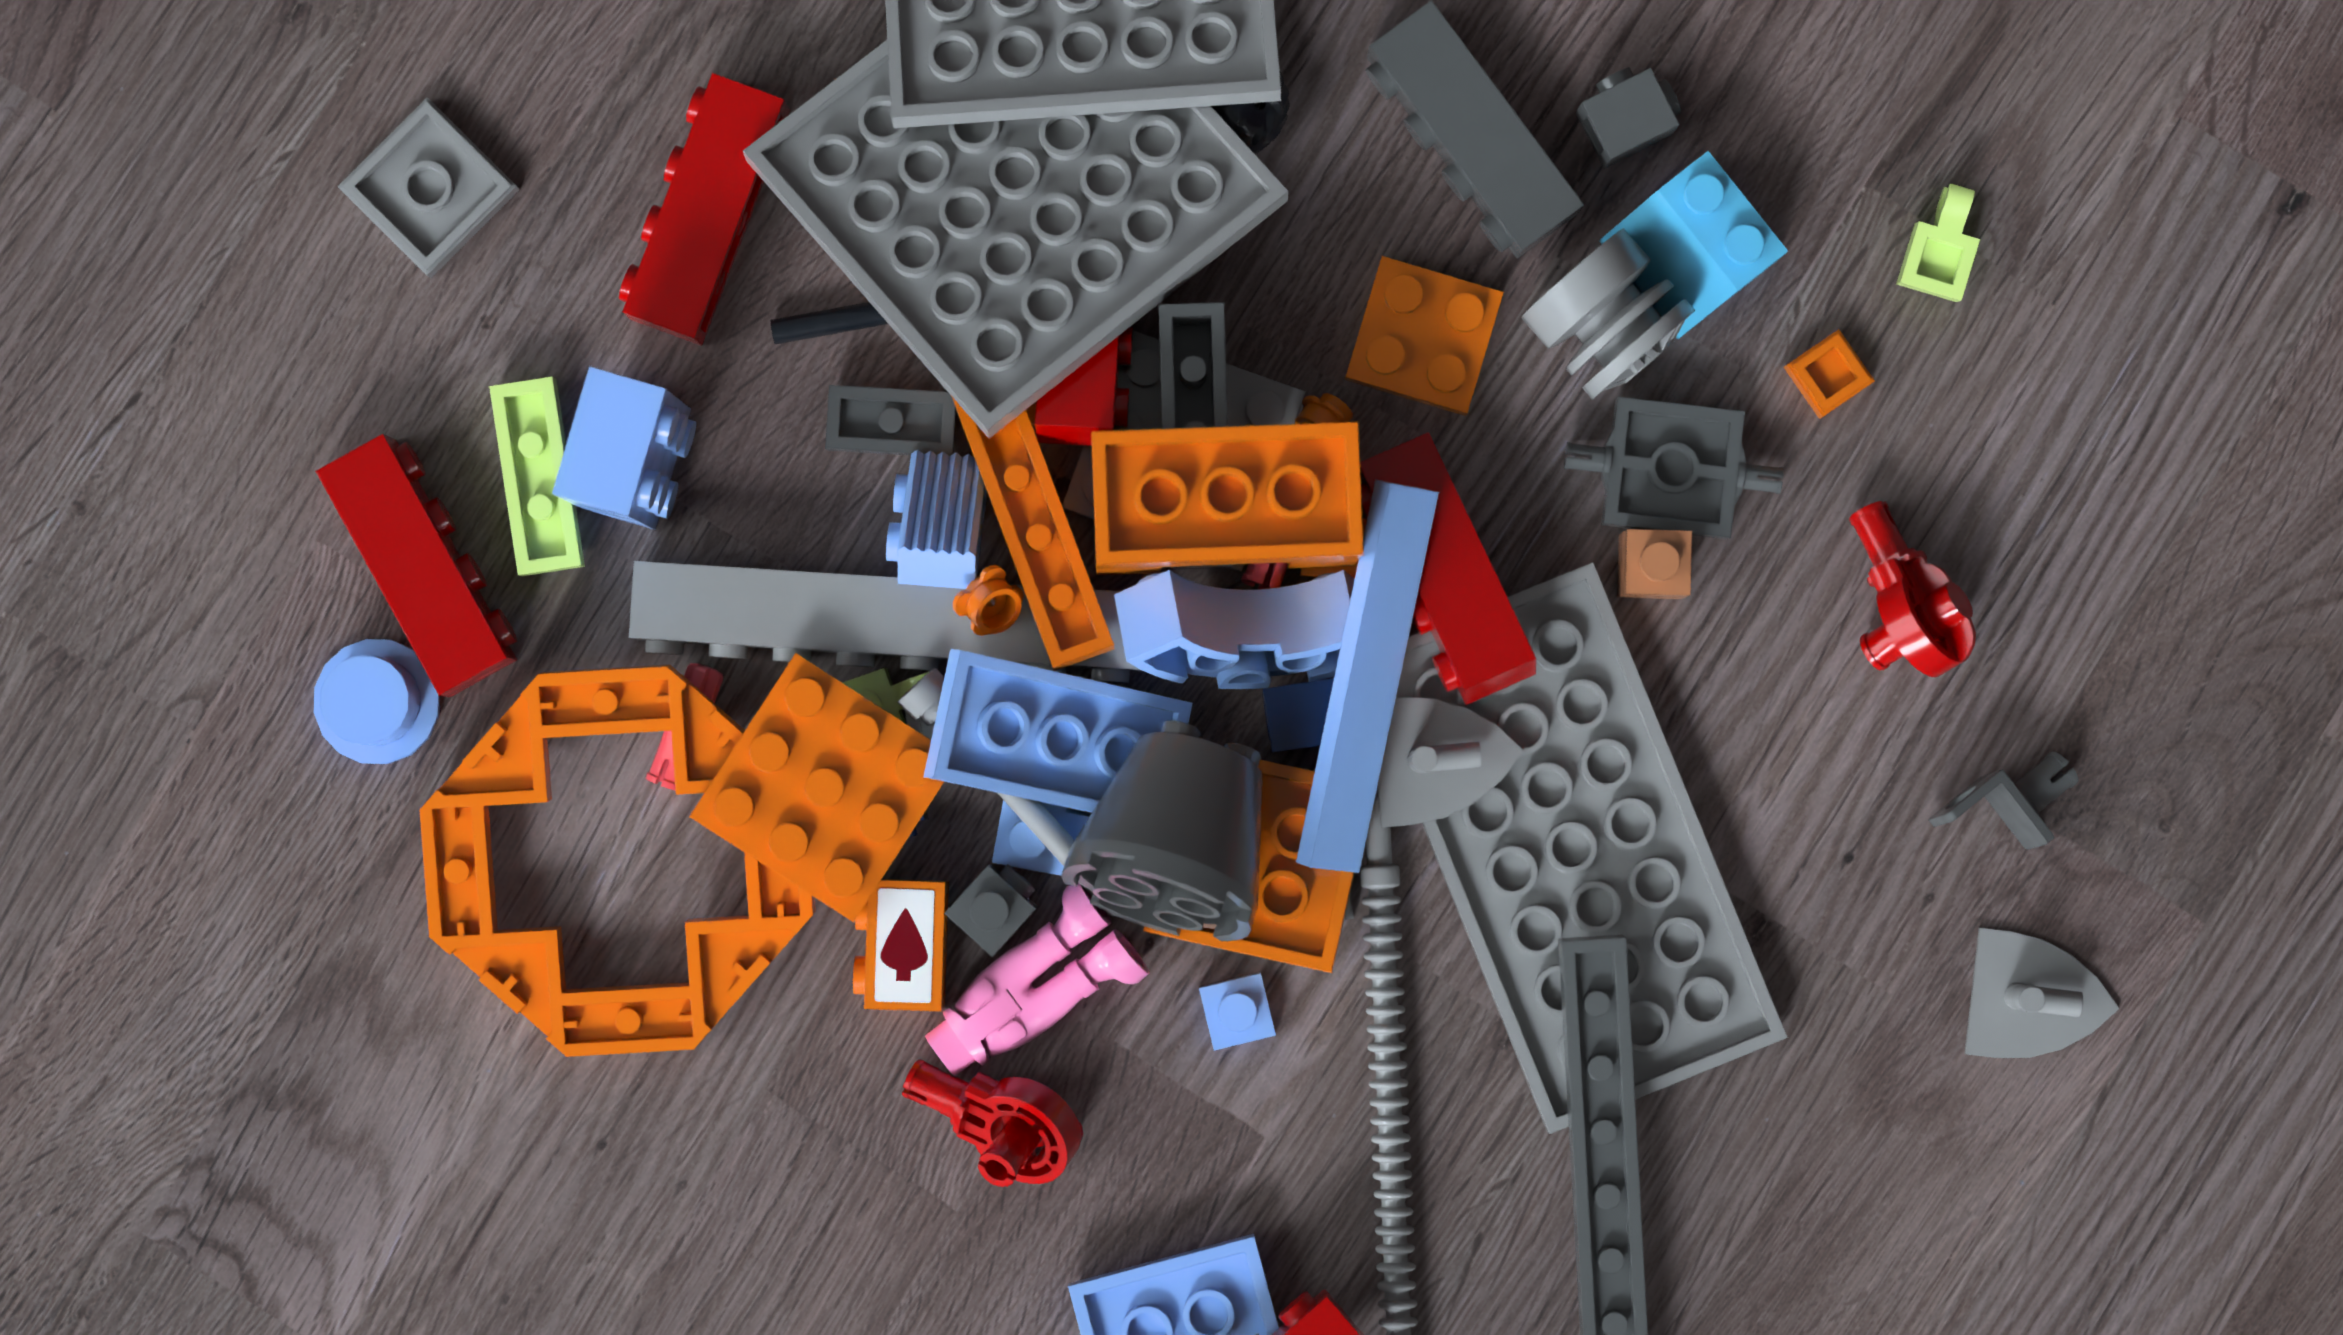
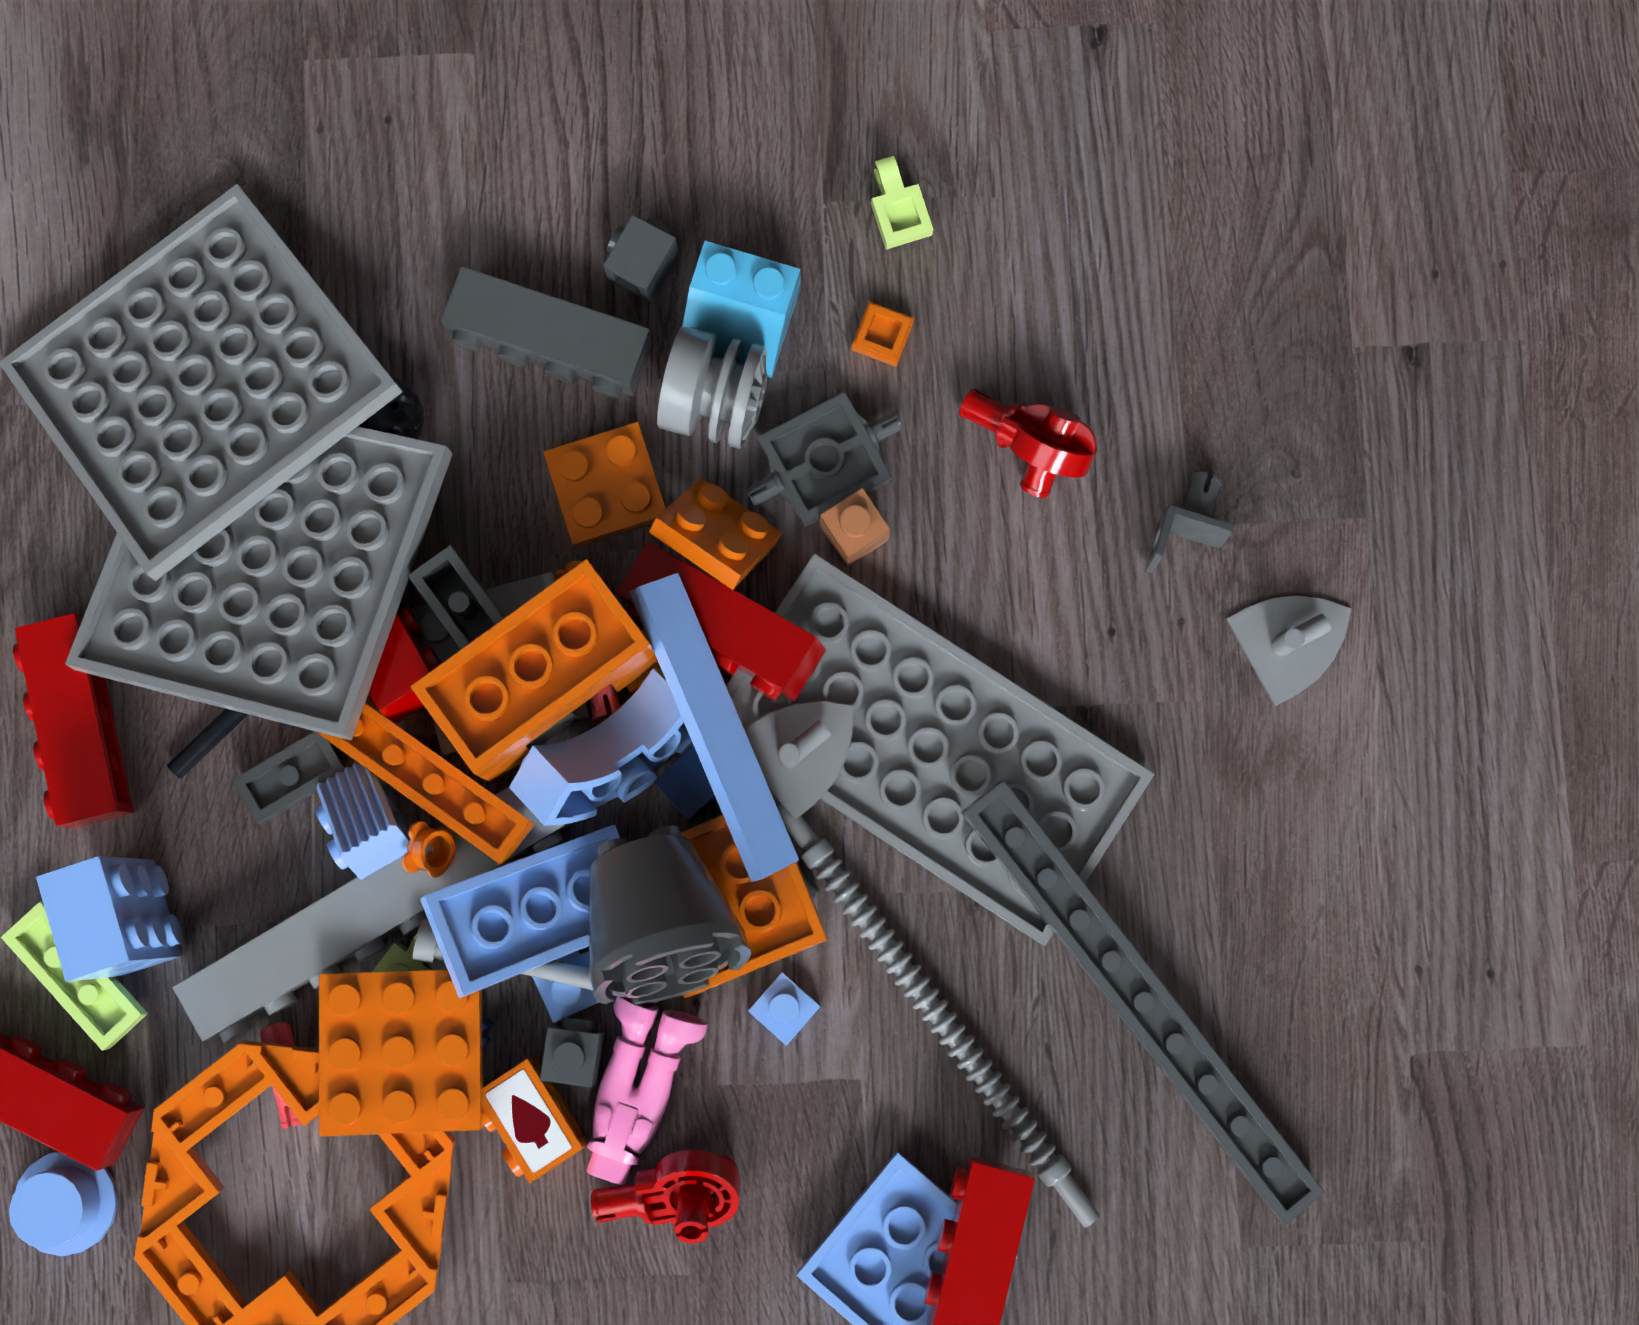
camera: 40 degrees left, 5 degrees down
(1505, 471) = (715, 532): none -> orange plate

